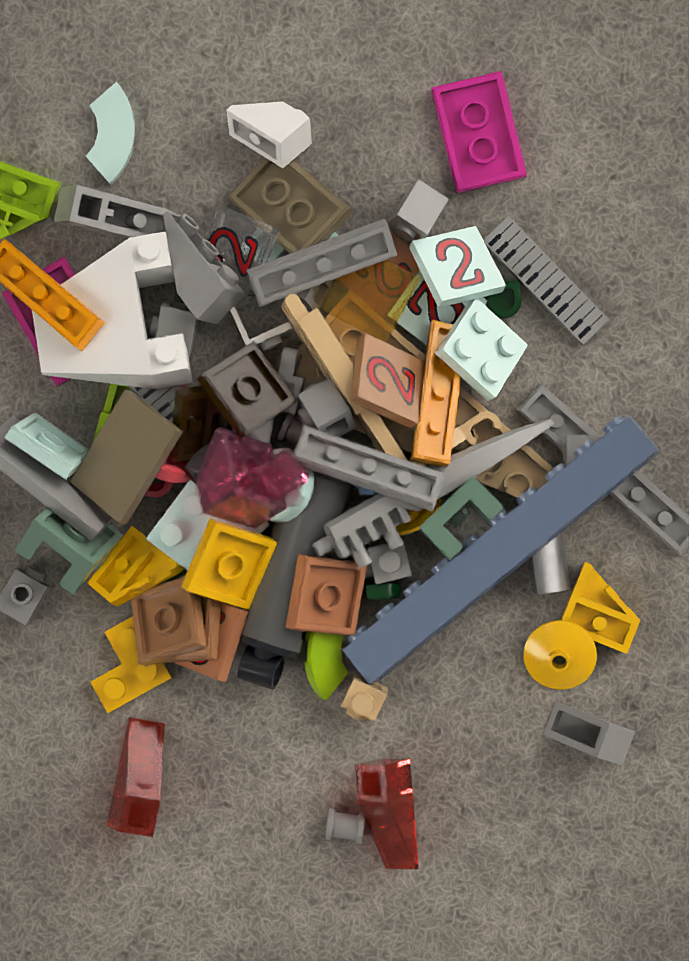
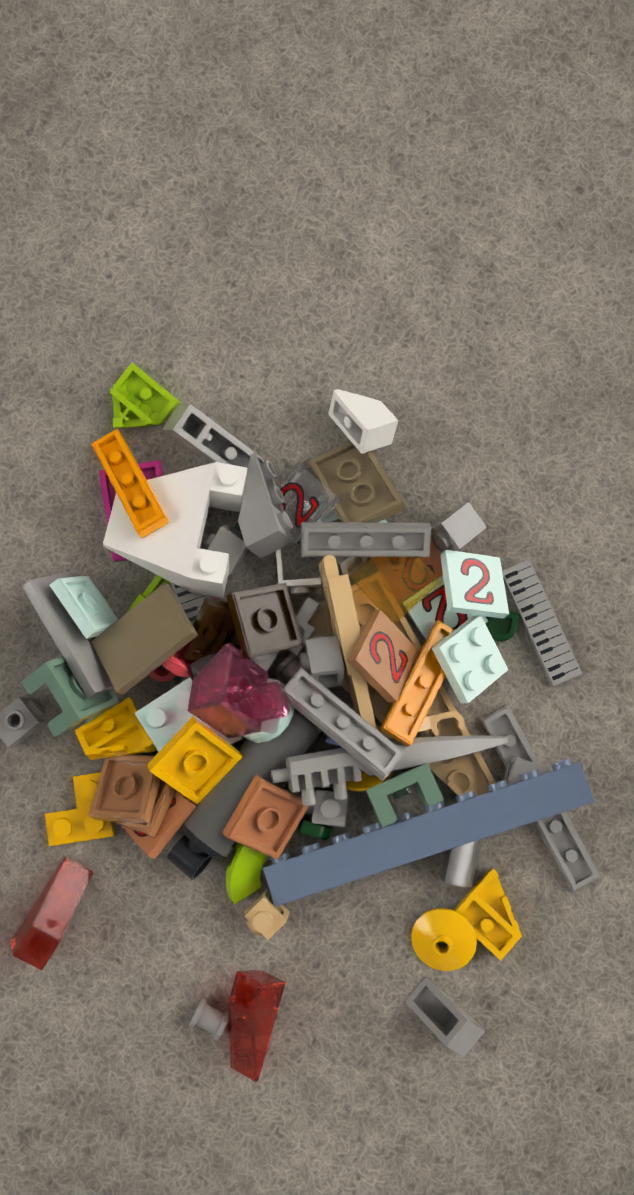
camera: 15 degrees right, 5 degrees down
(115, 133) = (237, 380): light aqua tile -> none
(479, 132) = (528, 484): dark pink tile -> none

